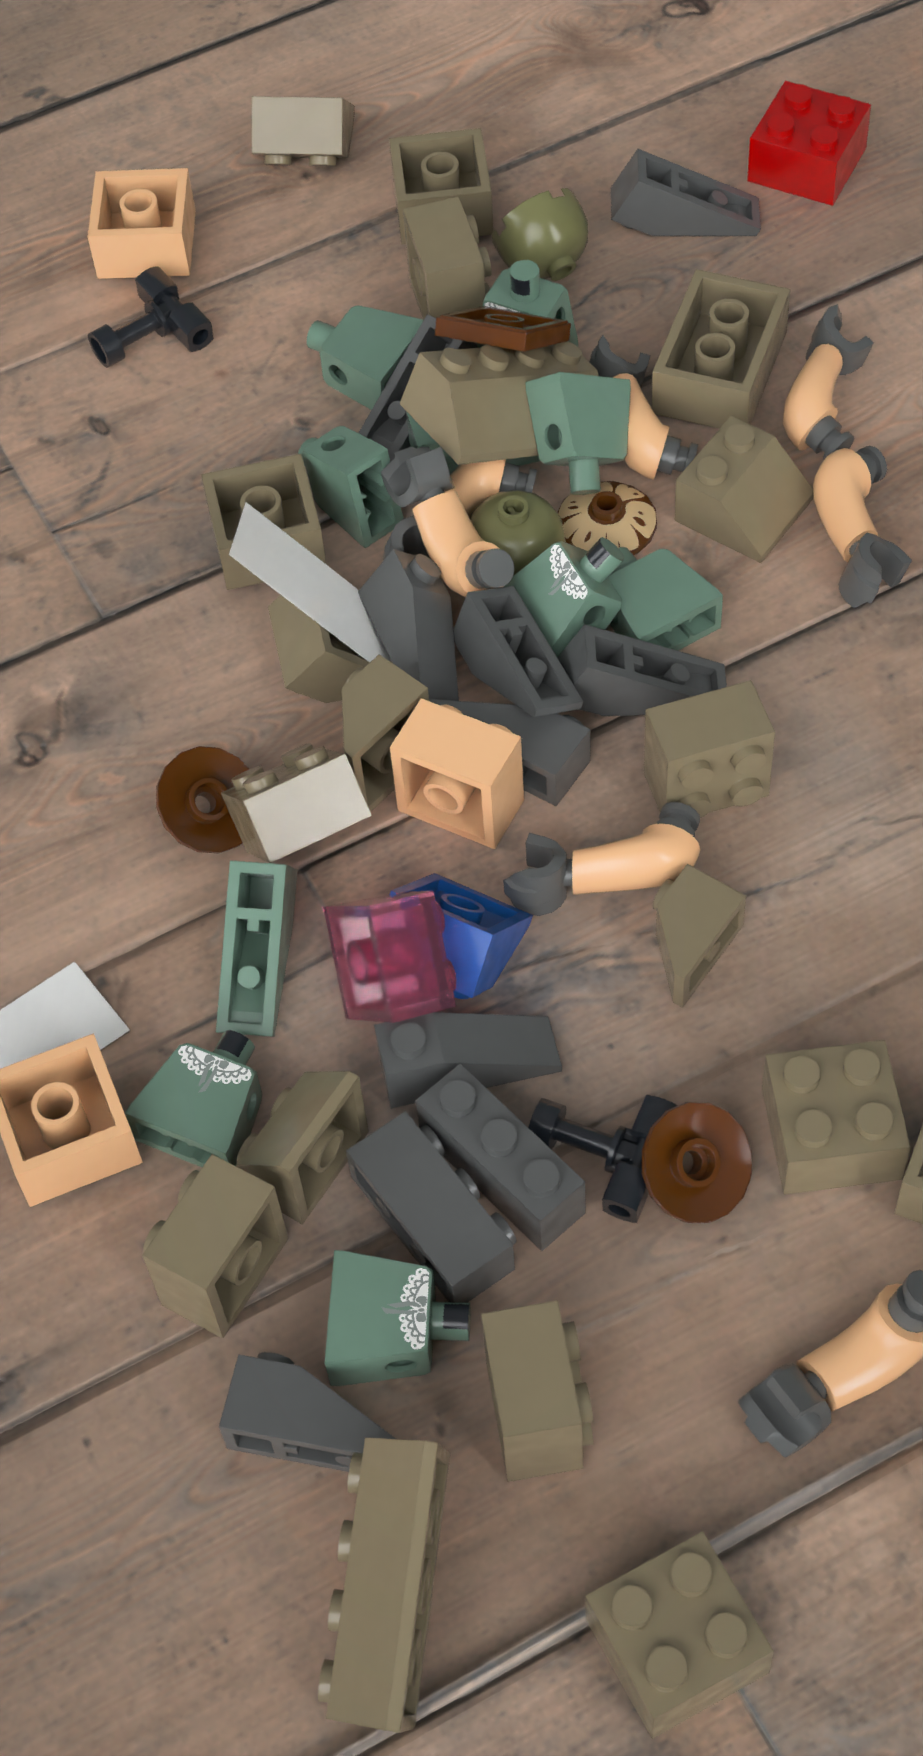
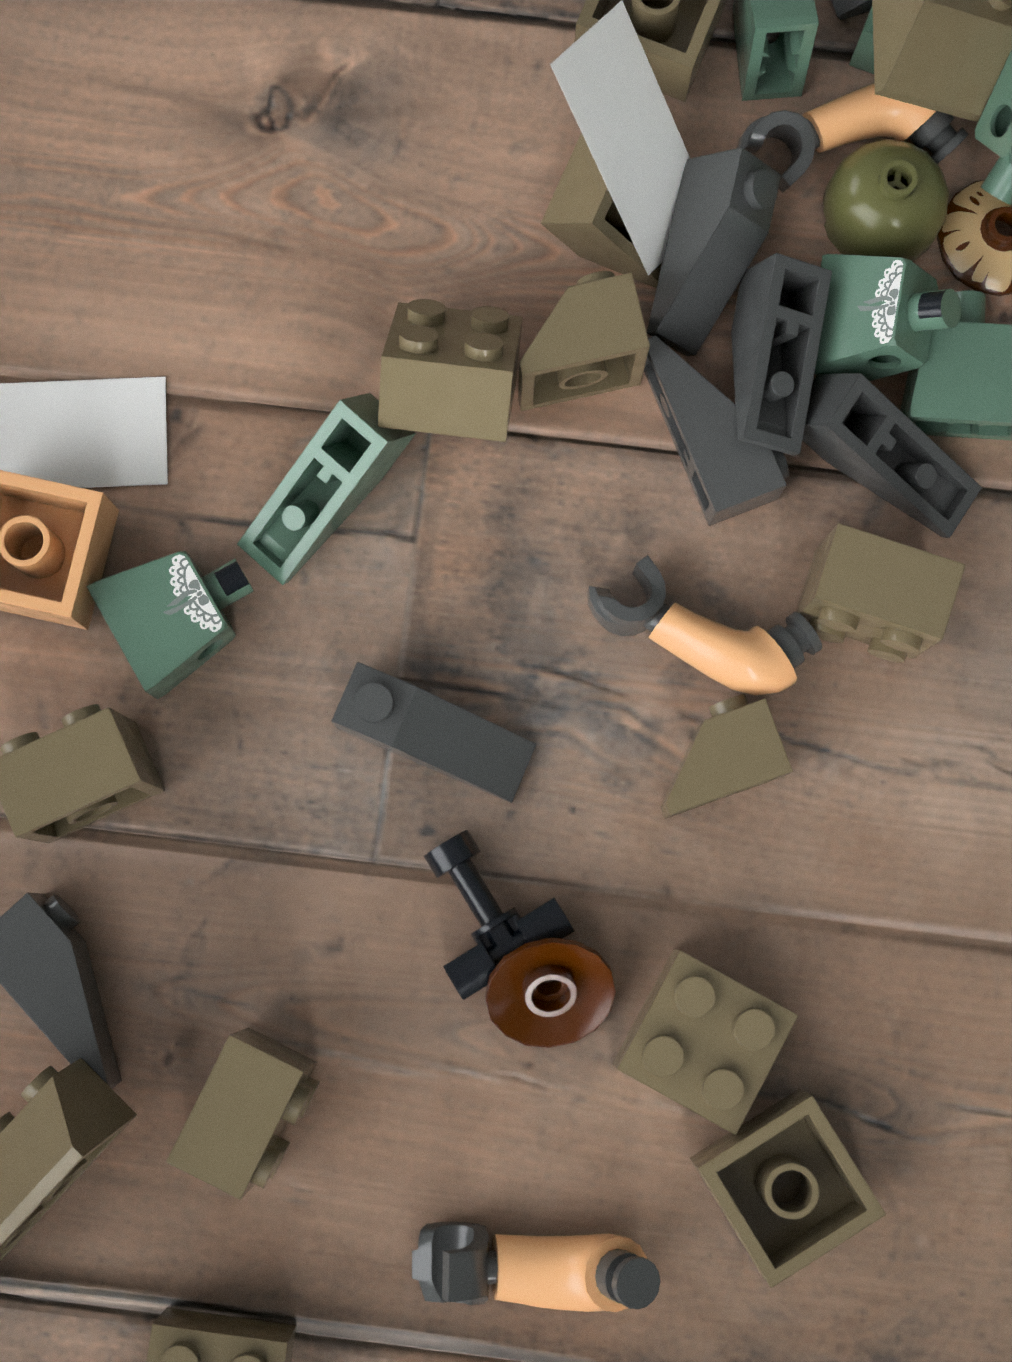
camera: 30 degrees right, 25 degrees up
(193, 774) = (362, 268): reddish brown dish -> none
(307, 1139) = (222, 722): dark tan slope -> none
(386, 1320) = (182, 939): sand green torso -> none
(391, 956) = (420, 606): clear pink slope -> none
(433, 1208) = (294, 864): dark grey brick -> none
(445, 528) = (813, 167): piece -> none
(458, 772) = (629, 441): light nougat brick -> none
(477, 932) = (506, 600): blue slope -> none
(503, 1157) = (385, 860): dark grey brick -> none

